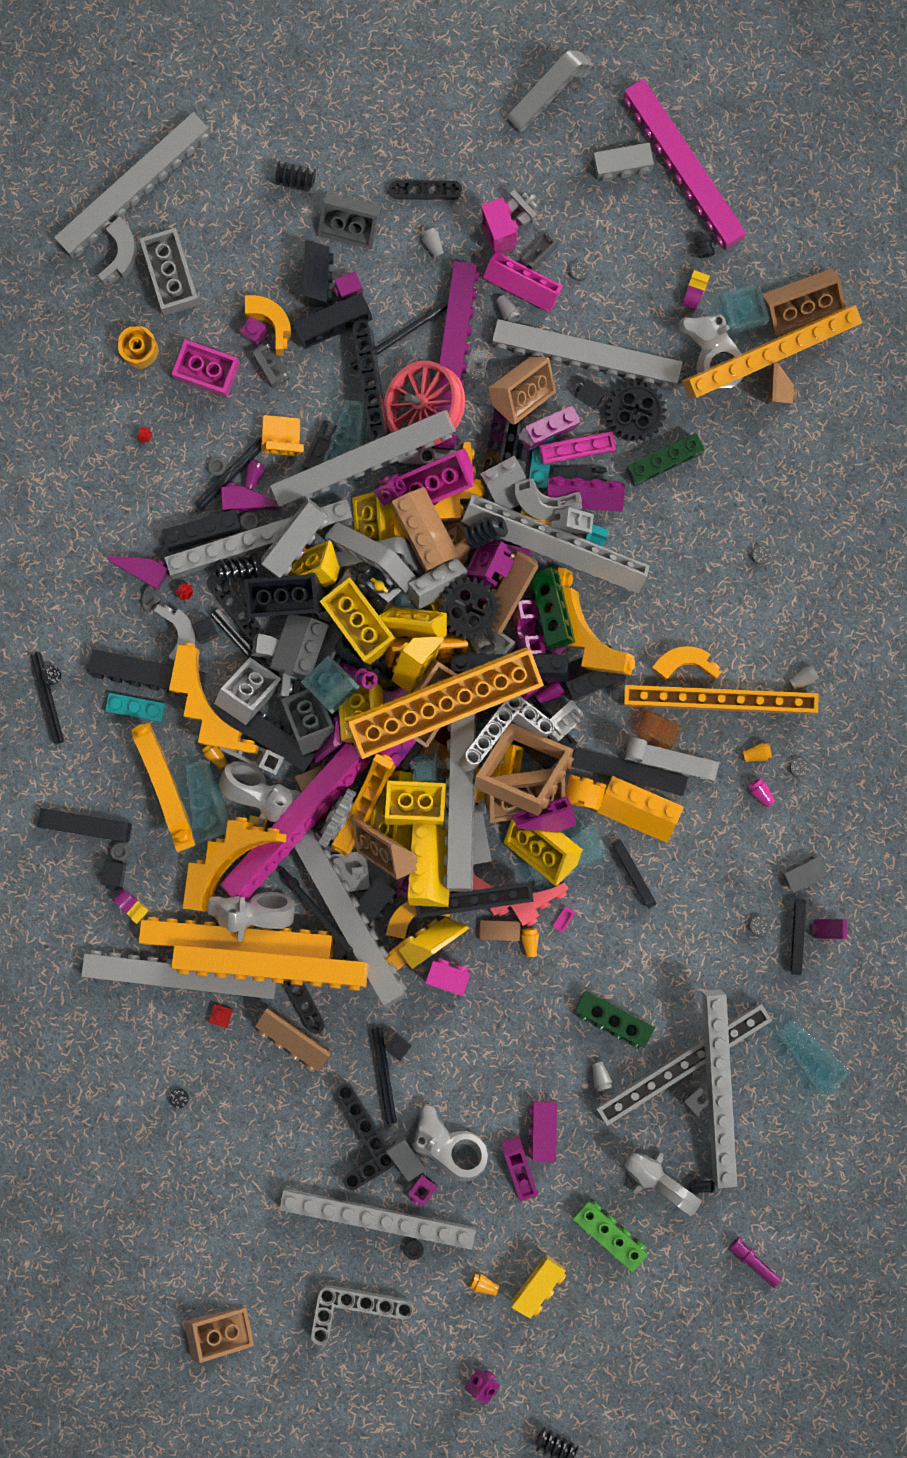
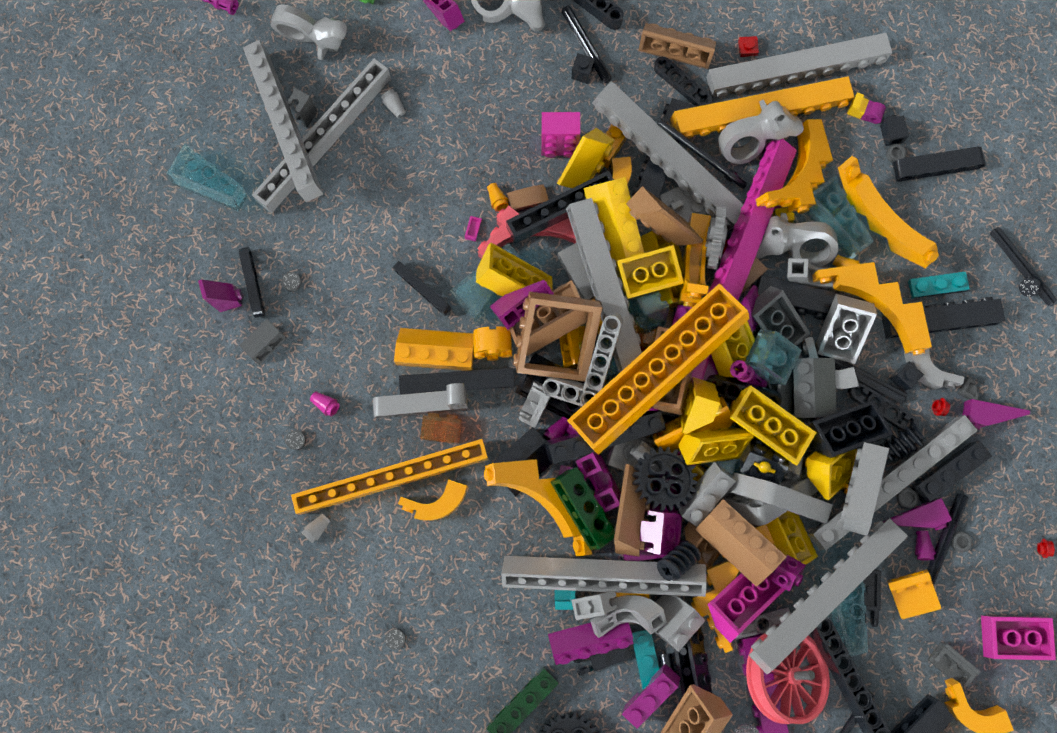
camera: 155 degrees right, 5 degrees down
(254, 331) = (986, 694): magenta brick -> none
(270, 966) = (724, 85): light orange brick -> none
(543, 1131) = (430, 42): magenta brick -> none
(577, 448) = (615, 685): dark pink tile -> none
(643, 1029) = (423, 164): dark green brick -> none
(701, 1186) = (275, 42): black pin -> none
(758, 753) = (339, 439): light orange cone -> none

